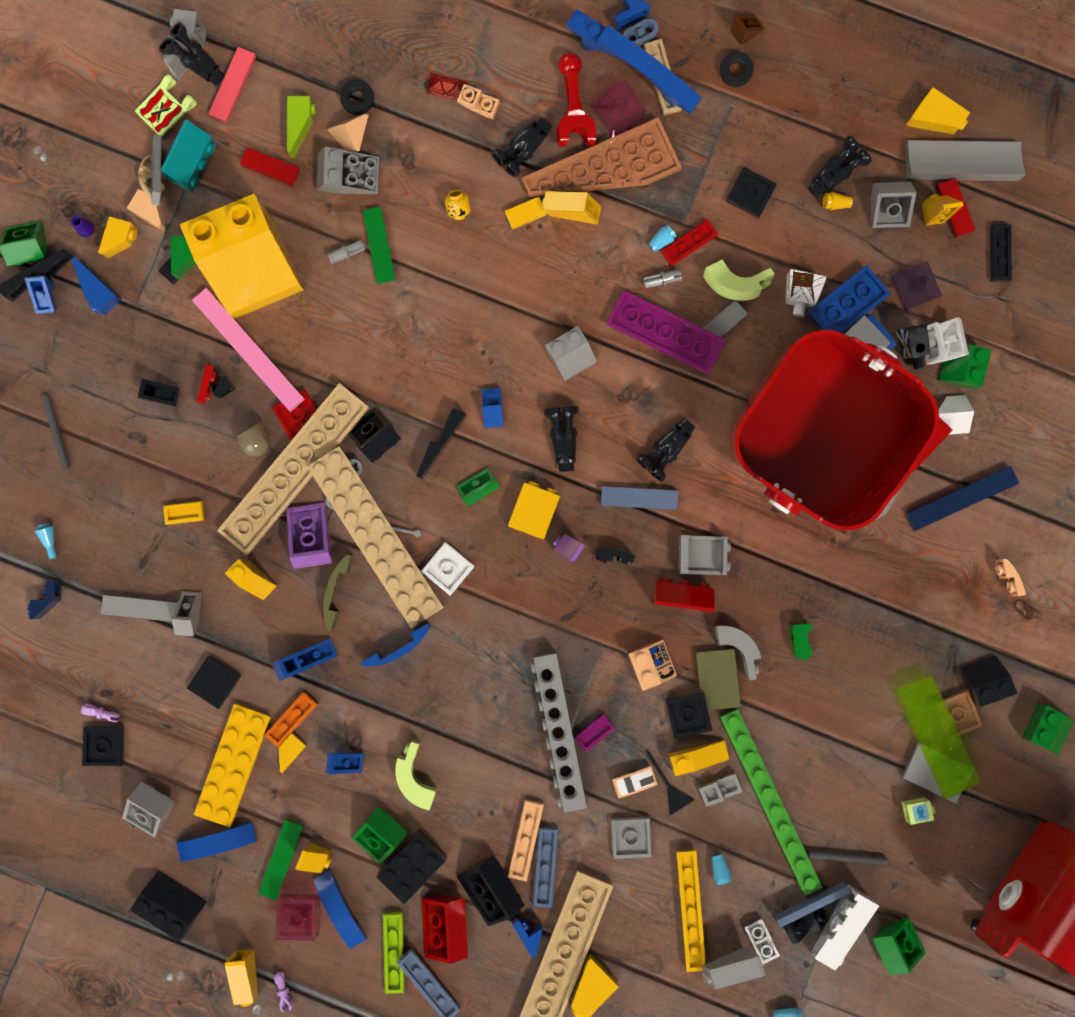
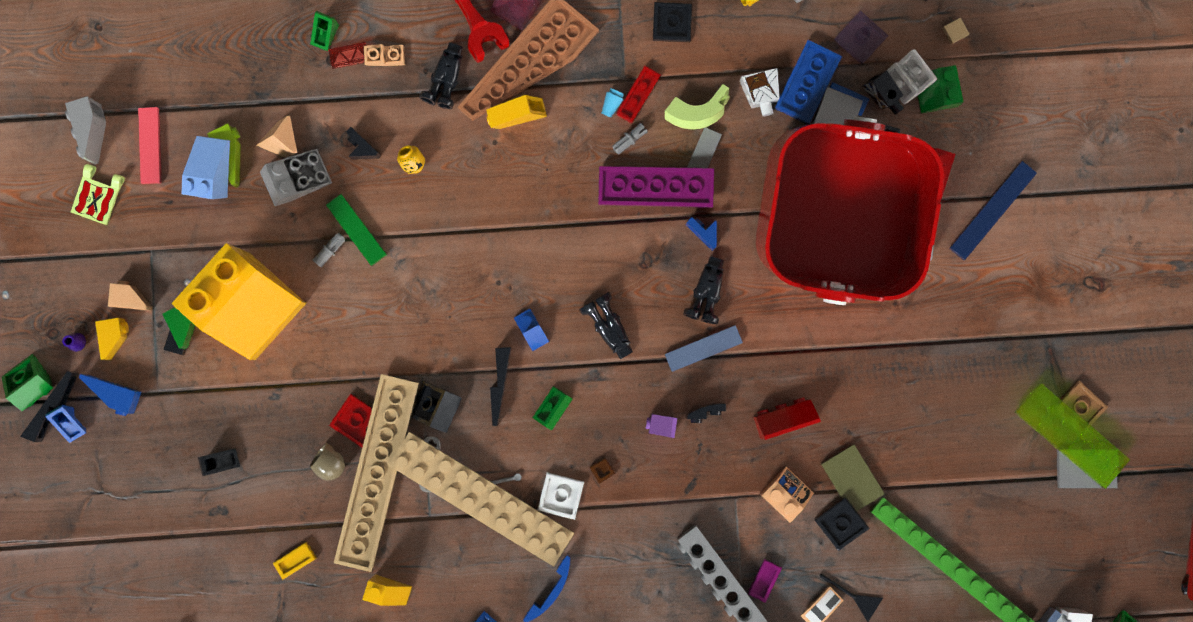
camera: 30 degrees left, 0 degrees up
(55, 432) = (140, 543): dark grey bar -> none
(144, 175) = (114, 267): tan tile -> none
(155, 170) = (118, 258): light grey tile -> none
(188, 156) = (142, 232): teal slope -> none
(197, 58) = (108, 138): black piece -> none
(208, 376) = (257, 426): red plate -> none
(223, 388) = (275, 429): black slope -> none
(248, 350) = (282, 383): bright pink tile -> none
(270, 167) = (225, 206): red tile -> none
(272, 127) = (207, 169): none -> light blue slope
(308, 536) = (419, 527): medium lavender slope -> none
(331, 615) = (473, 589): olive slope -> none
(349, 88) = (262, 94): black tyre -> none
(418, 176) = (364, 150): none -> black slope
(434, 54) = (323, 30): none -> green slope
(495, 564) = (602, 470): none -> reddish brown tile
(525, 213) = (476, 137): yellow tile -> none
(534, 510) = (614, 405): yellow panel -> none
(570, 353) = (579, 246): light grey slope -> none
(690, 398) = (708, 236): none -> blue slope
(698, 757) = (868, 558): yellow slope -> none
(703, 555) = (786, 372): light grey panel -> none
(720, 789) = (902, 576): light grey slope -> none
(744, 644) = (847, 434): light grey arch -> none
(799, 640) = (909, 409): green leg -> none
(847, 857) = (1044, 583): dark grey bar -> none
(918, 810) = (1086, 511): yellowish green brick -> none
(957, 413) = (951, 136): white slope -> none
(988, 681) = (1093, 365): black slope -> none
(1006, 320) = (956, 31): none -> tan tile
(1007, 571) = (1062, 257): light nougat slope -> none
(1048, 729) = (1166, 381): green slope -> none

